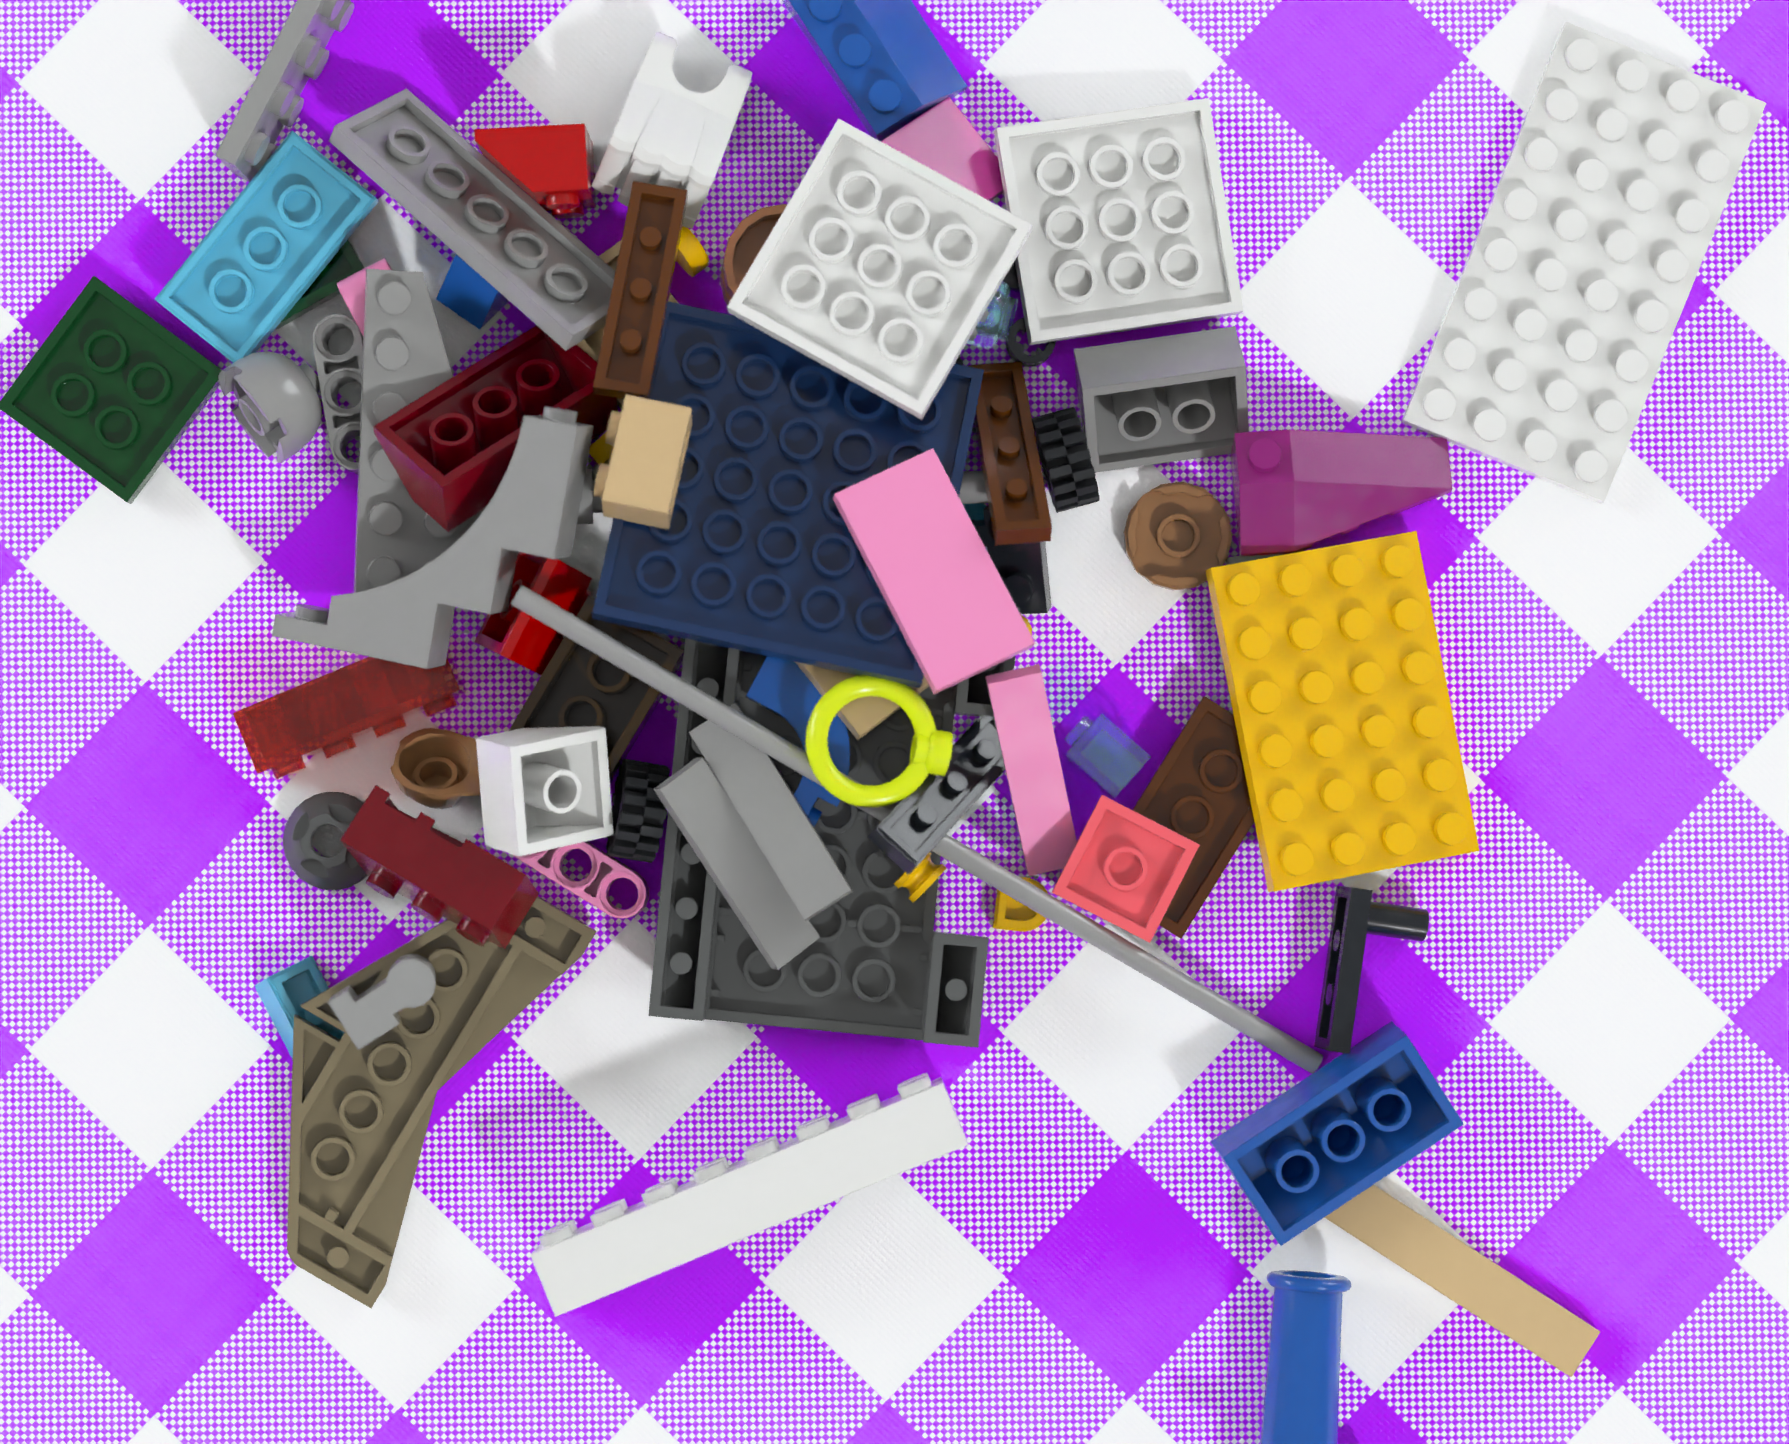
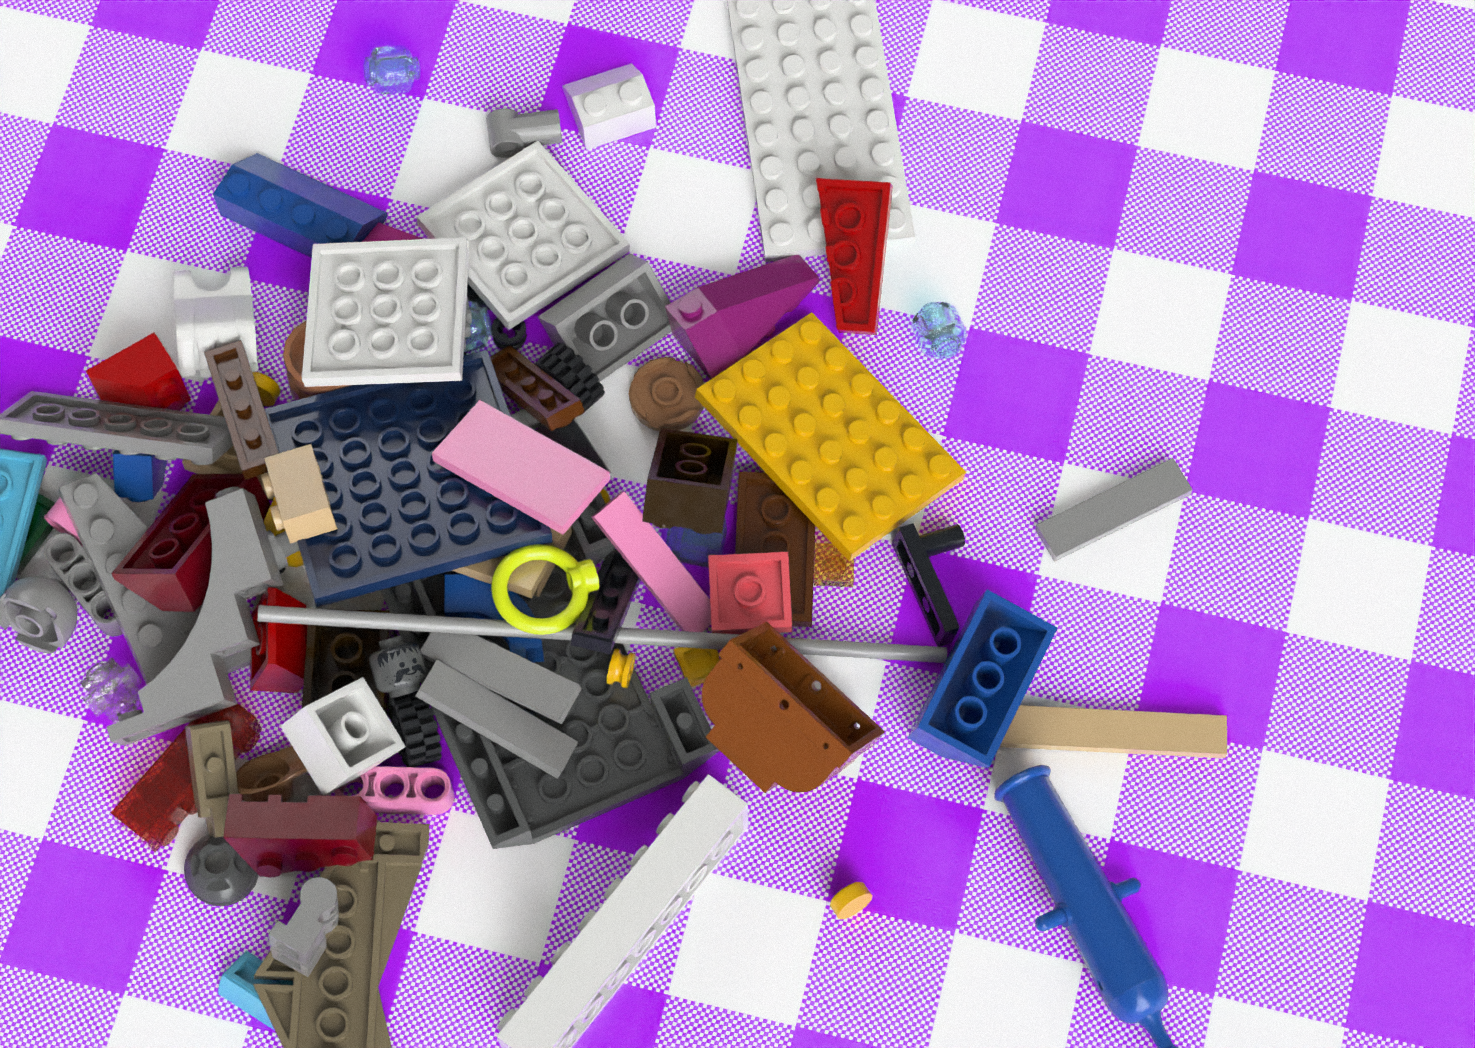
camera: 30 degrees left, 20 degrees down
(311, 556) = (111, 689): none -> clear brick
(373, 738) = (212, 771): none -> dark tan hinge
(653, 737) = (398, 666): none -> dark grey head
(1030, 1299) = (850, 900): none -> yellow tile
(1067, 1062) = (776, 719): none -> dark orange container
(1134, 690) = (690, 481): none -> dark brown brick
(1184, 65) = (513, 131): none -> light grey piece
(1245, 880) = (832, 567): none -> clear yellow plate
(1330, 92) = (611, 105): none -> white slope
(1525, 472) = (856, 242): none -> red wing
(1557, 647) = (939, 330): none -> clear light blue head
(1628, 998) = (1113, 509): none -> light grey tile

